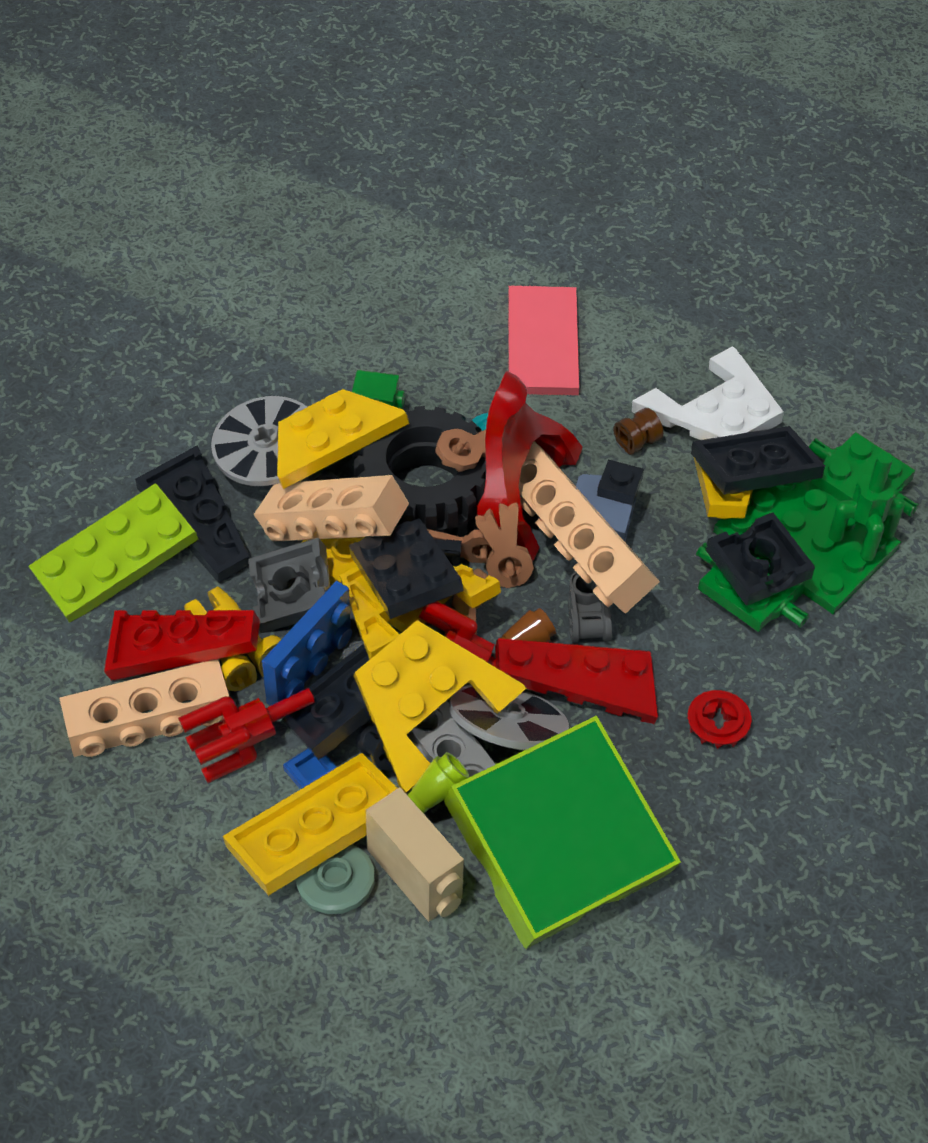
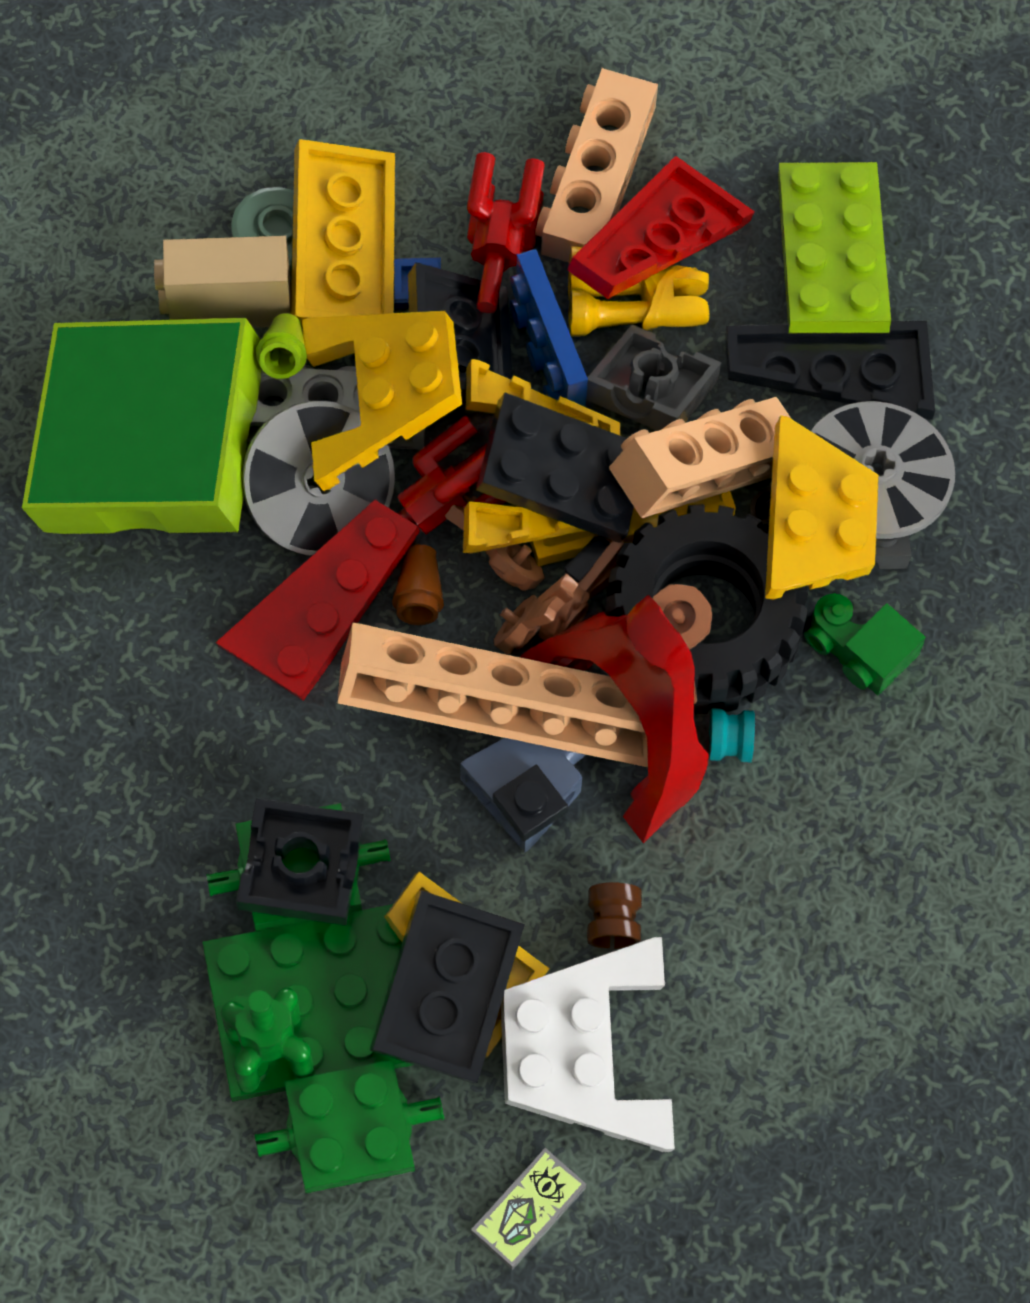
camera: 125 degrees right, 15 degrees up
(544, 339) = (854, 925): coral tile -> none
(734, 711) = (167, 684): red gear -> none
(819, 390) = (528, 1208): none -> tile

